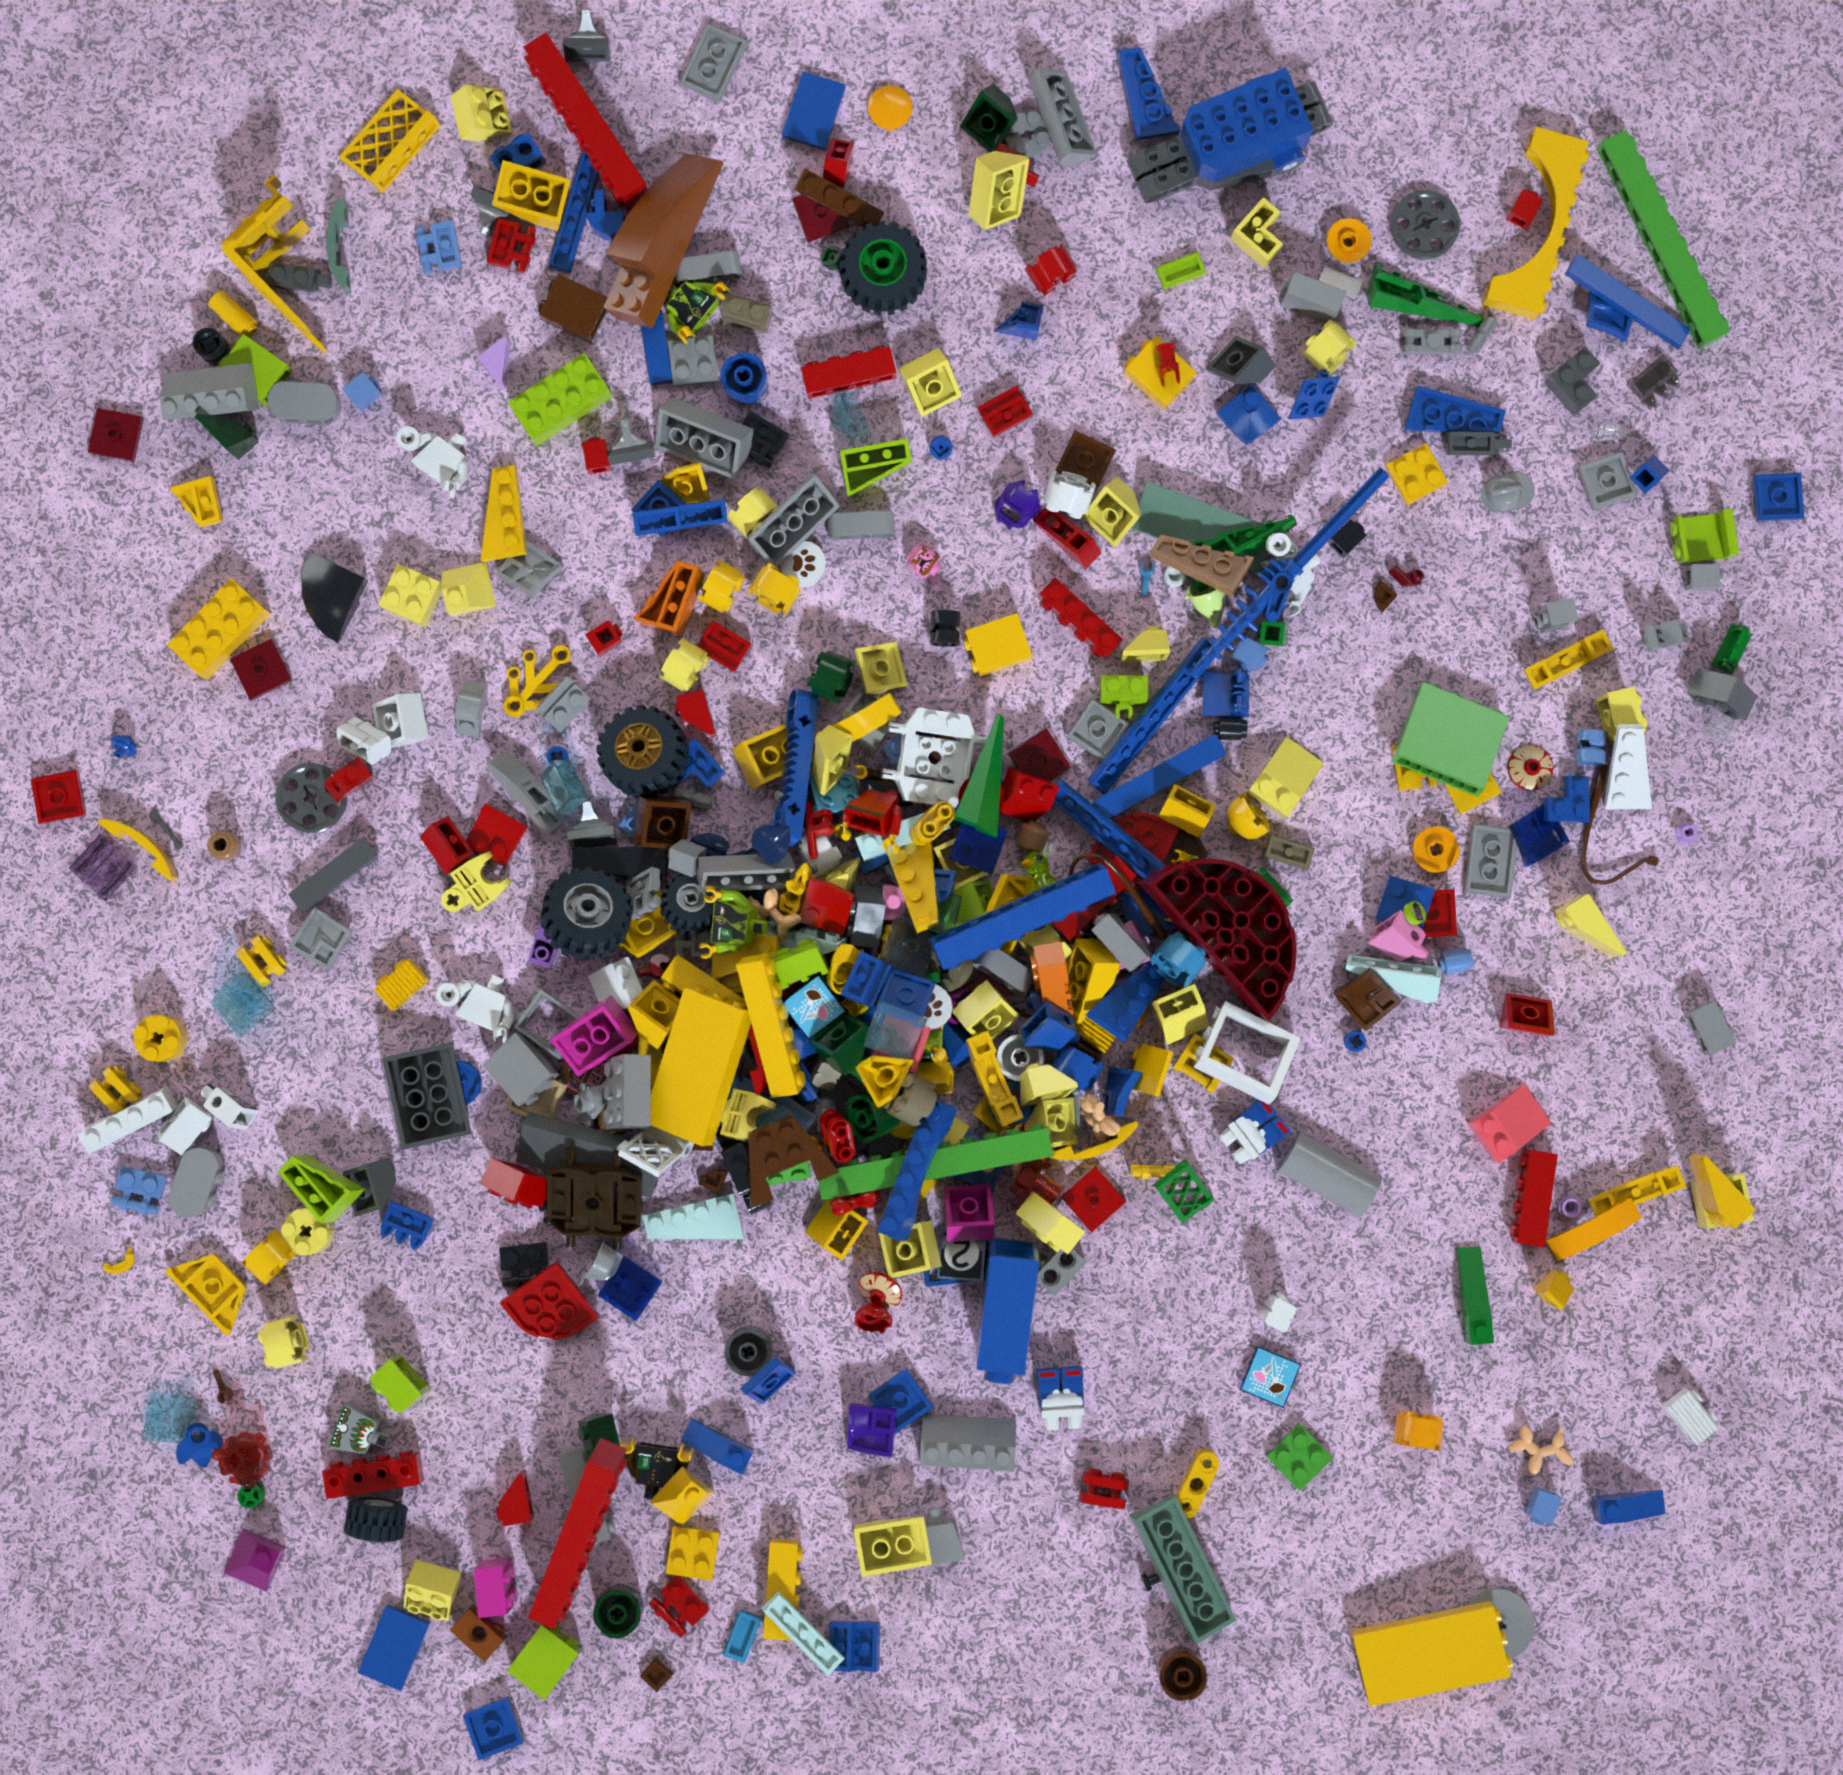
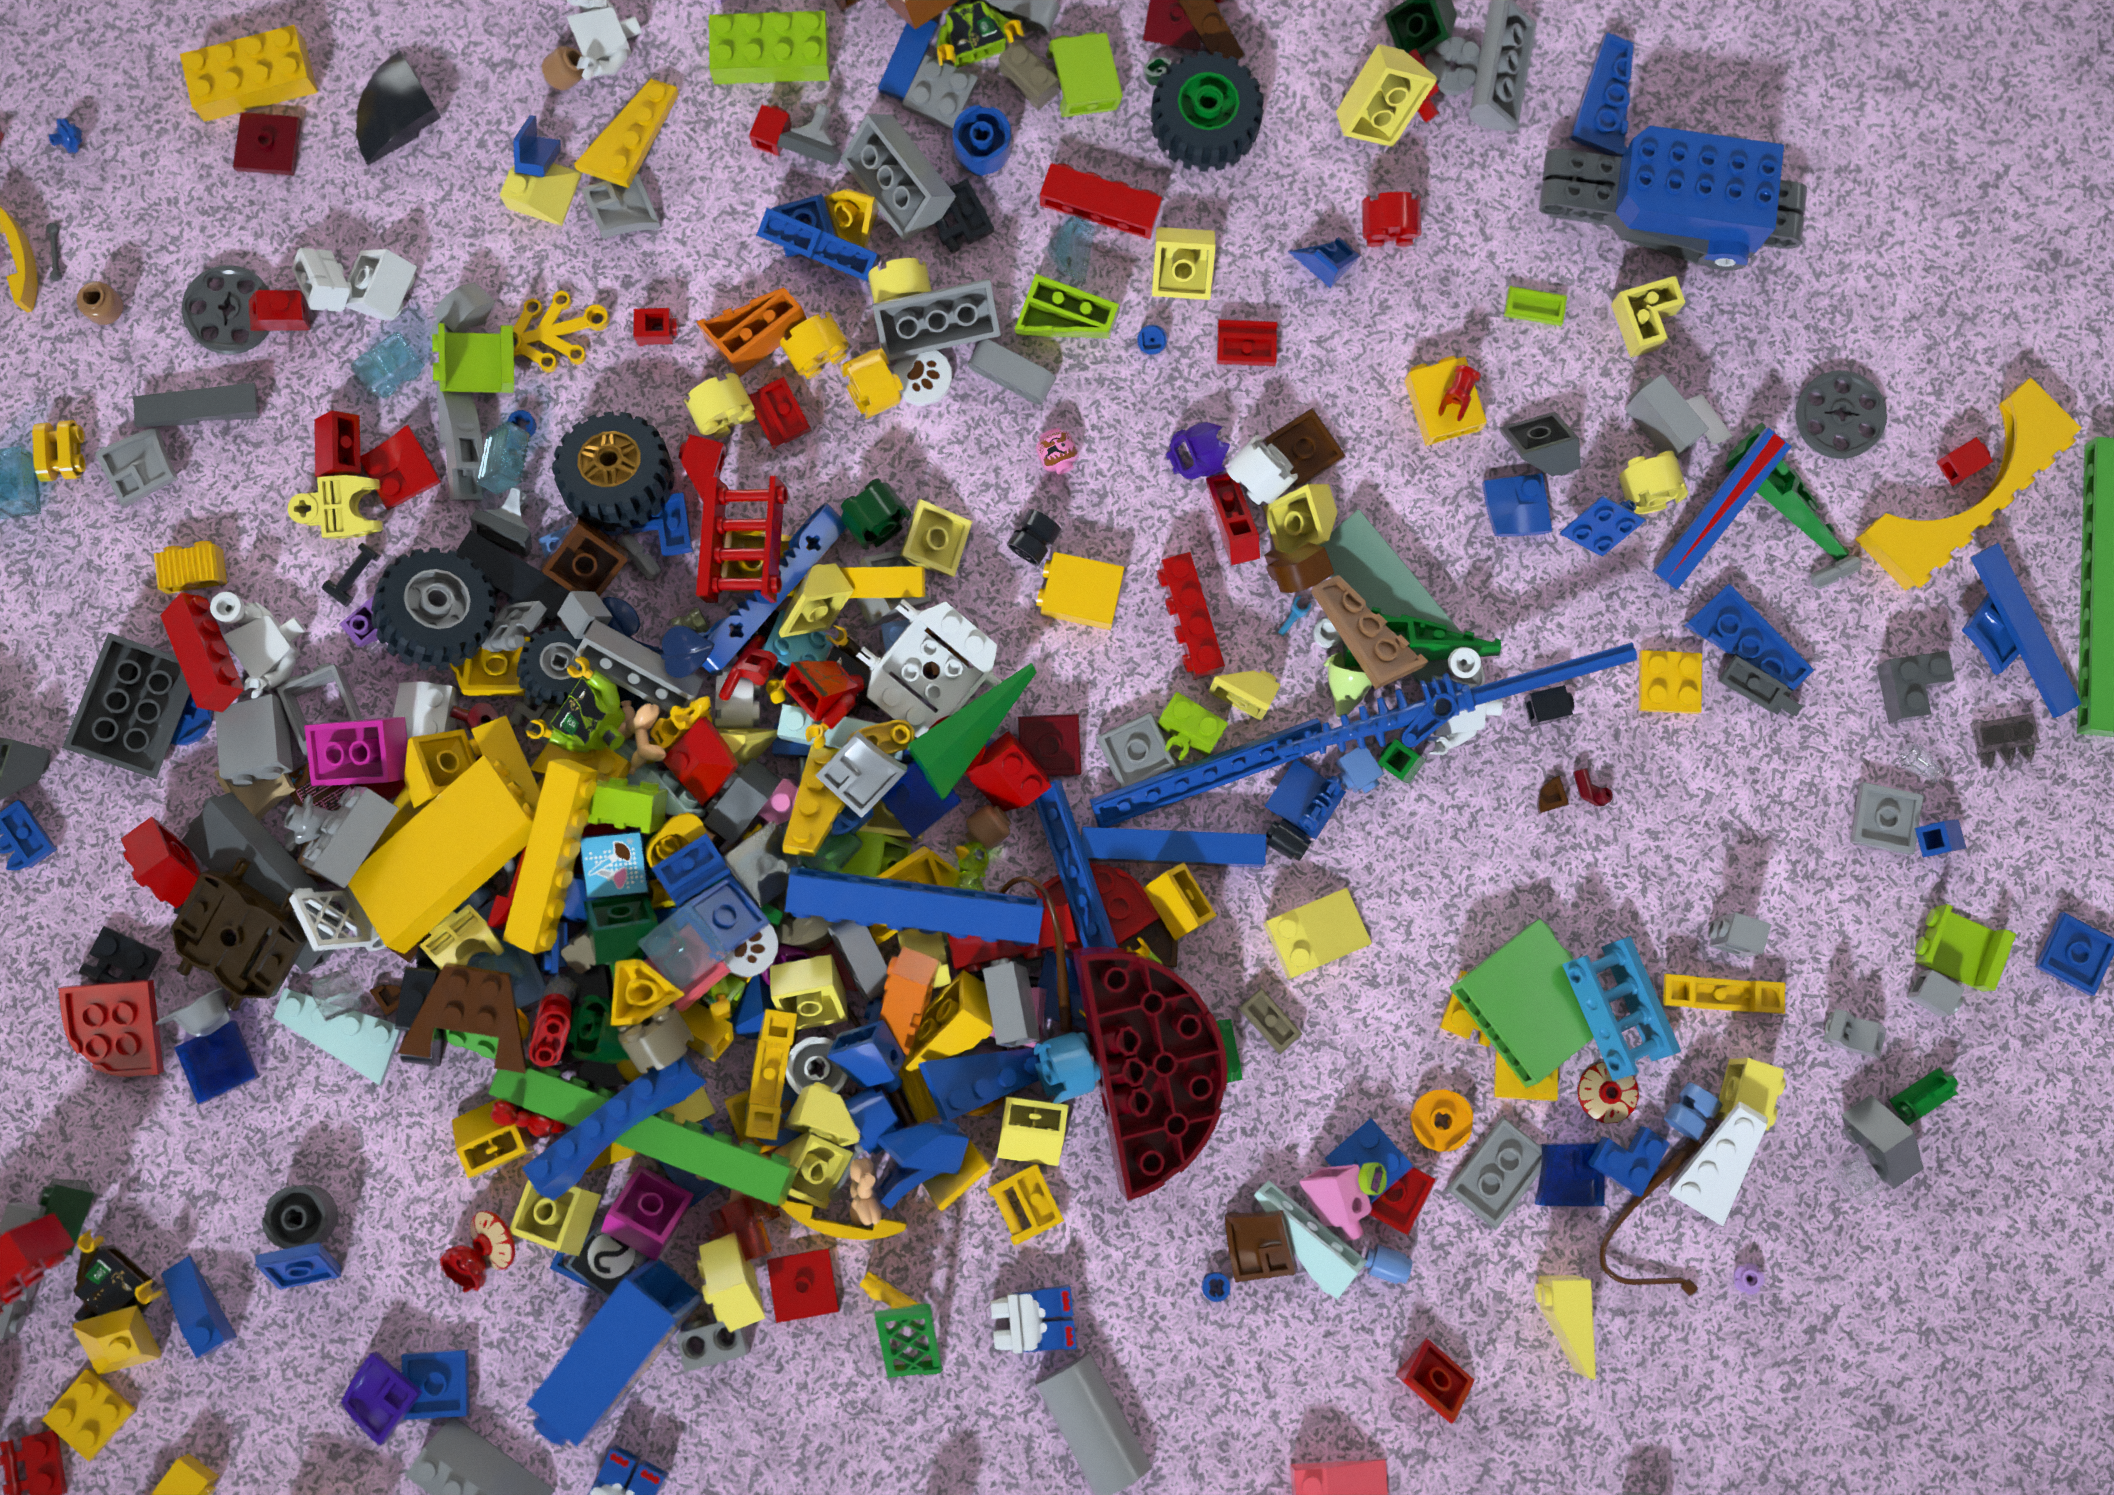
camera: 25 degrees right, 5 degrees down
(411, 595) = (474, 158): light yellow brick -> none
(430, 498) = (560, 68): none -> medium nougat head
(444, 771) = (388, 366): none -> clear light blue brick
(450, 567) = (532, 153): none -> blue panel
(450, 1033) = (202, 652): none -> red brick
(503, 733) = (474, 361): none -> lime panel
(508, 940) = (339, 590): none -> black piece
(563, 704) = (563, 370): light grey plate -> none
(680, 1197) = (337, 993): none -> clear brick
(736, 747) = (715, 524): none -> red fence
(755, 821) = (693, 620): none -> olive wheel
(785, 289) = (1085, 74): none -> lime panel
(935, 853) = (861, 774): none -> light grey plate
(1124, 1062) = (927, 1147): none -> blue slope
(1133, 546) = (1299, 569): none -> reddish brown brick
(1246, 818) = (1244, 952): yellow cylinder -> none
(1263, 1092) = (1047, 1244): white window -> none
(1351, 230) = (1753, 372): light orange dish -> none
(1384, 338) = (1721, 508): none -> blue tile
(1432, 342) = (1774, 546): light grey plate -> none
(1507, 492) = (1763, 764): light grey piece -> none
(1518, 696) = (1640, 999): none -> dark azure fence

